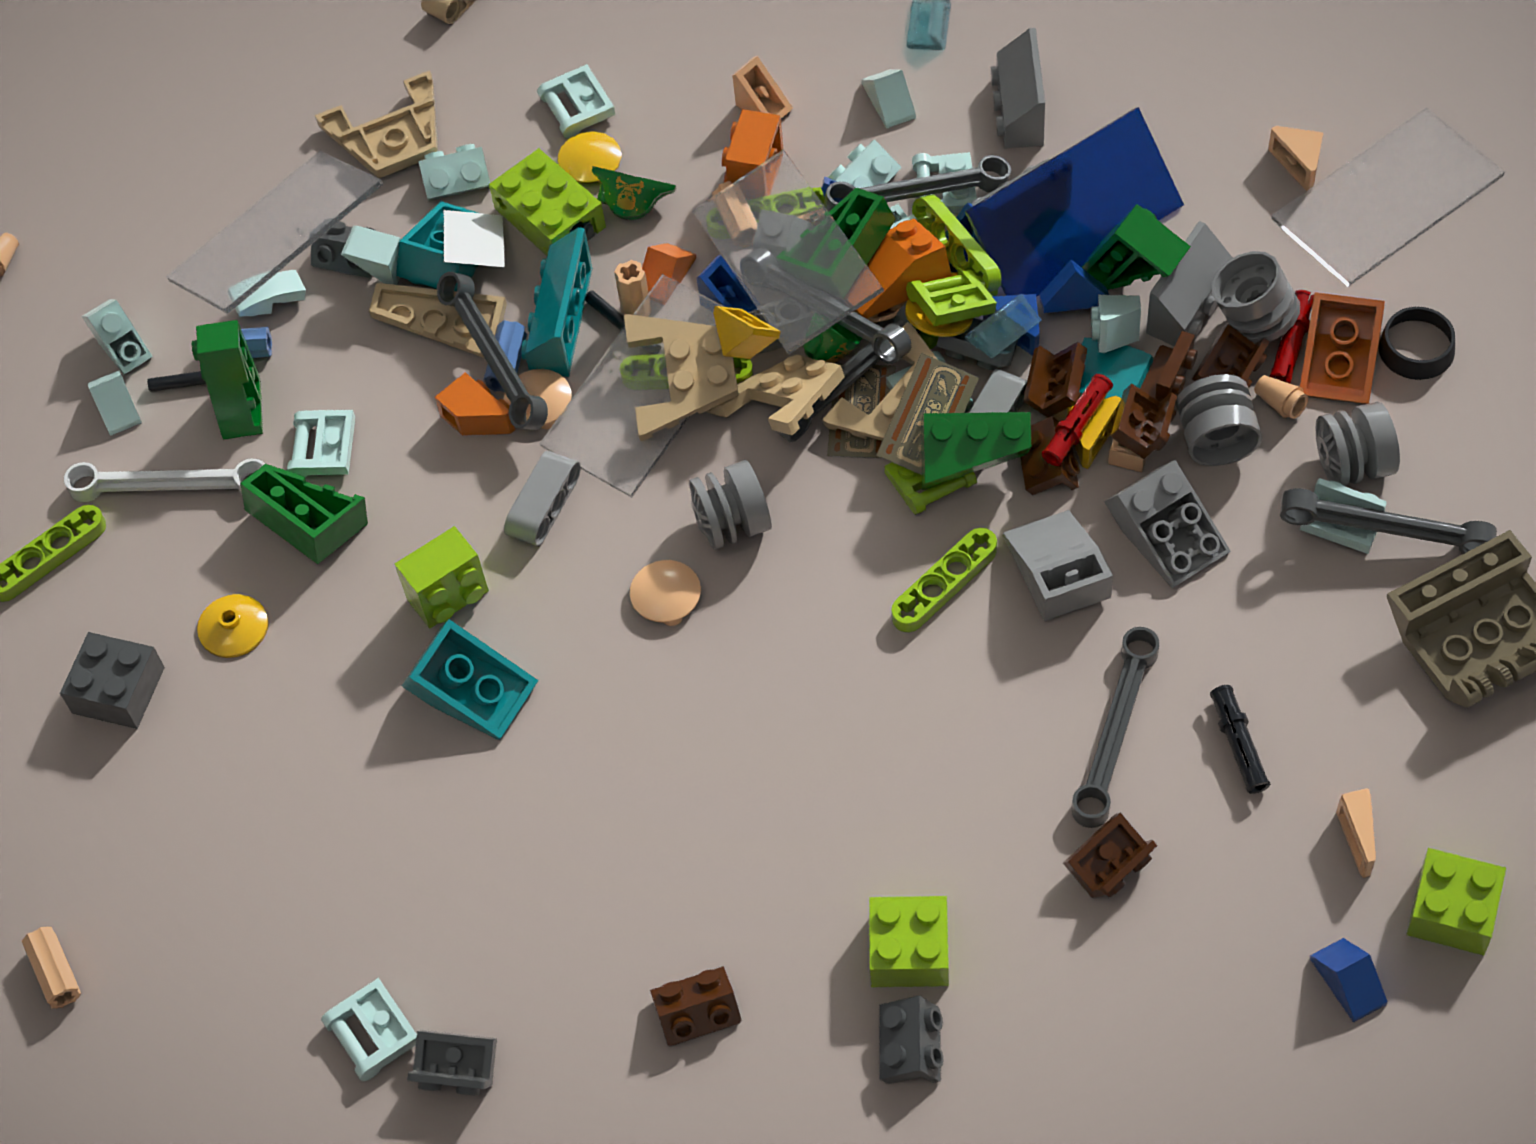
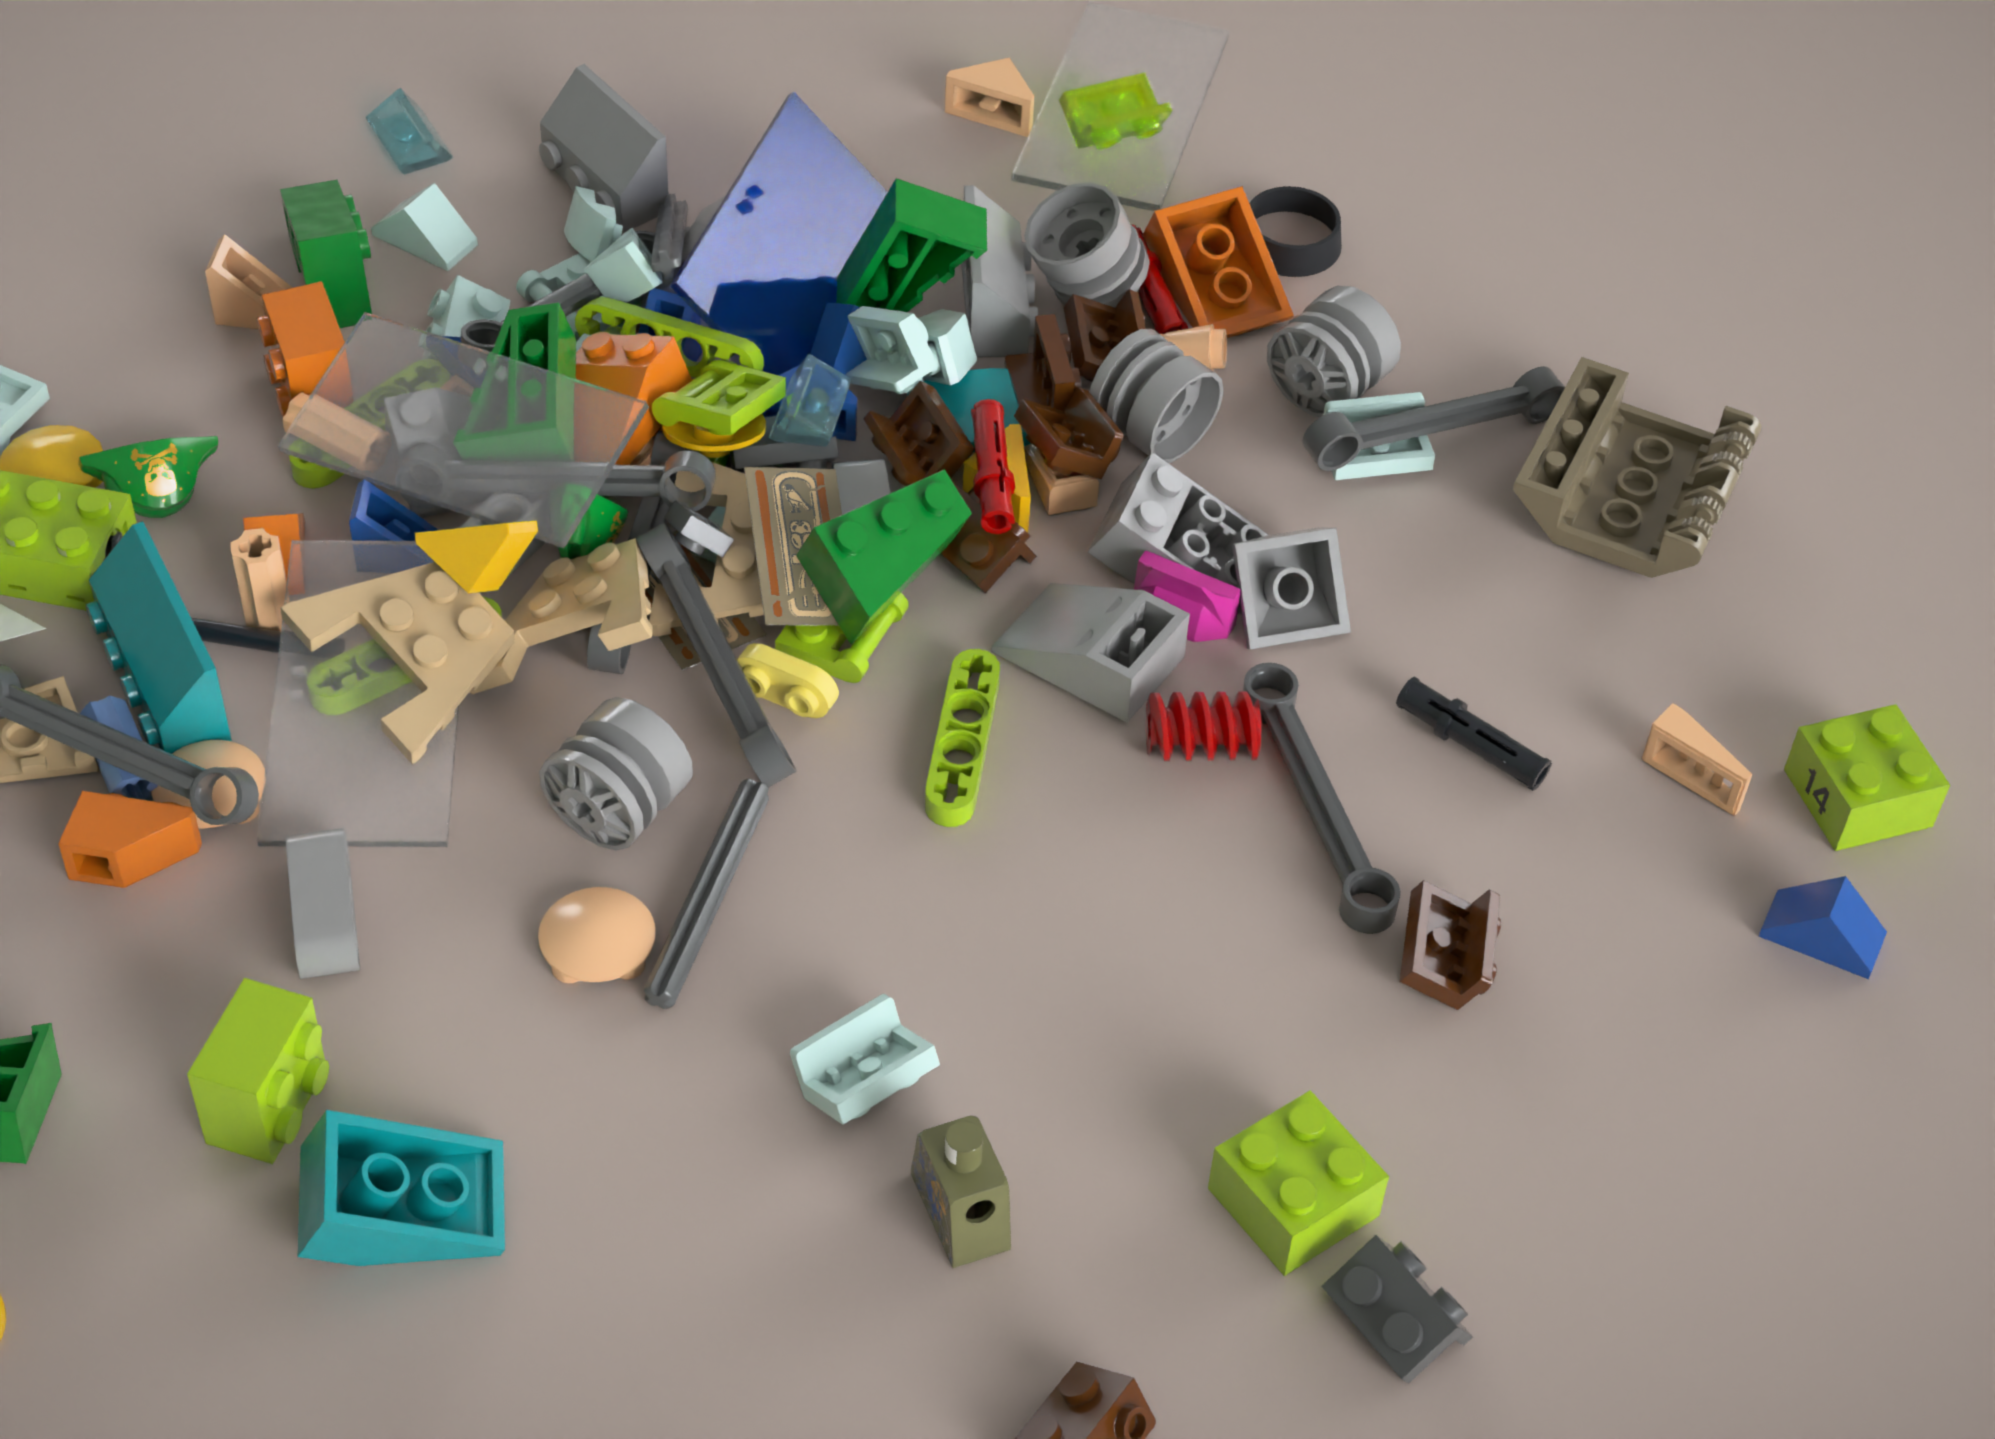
camera: 45 degrees left, 10 degrees down
(733, 834) = (952, 1172): none -> olive torso
(738, 598) = (706, 894): none -> dark grey axle
(739, 739) = (861, 1060): none -> light aqua bracket
(817, 87) = (329, 245): none -> green wedge
(825, 532) = (757, 736): none -> dark grey piece
(873, 501) = (788, 681): none -> light yellow plate
(880, 376) = (697, 531): none -> plate
(966, 182) = (624, 269): none -> light aqua slope
(975, 143) = (590, 225): none -> light aqua slope
(1007, 171) = (669, 236): none -> dark grey axle
(1075, 323) = (893, 348): none -> light aqua bracket
(1078, 650) = (1203, 724): none -> red piece
(1135, 563) = (1208, 600): none -> dark pink slope
(1203, 586) = (1291, 587): none -> light grey slope
(1363, 202) = (1113, 111): none -> clear neon green bracket

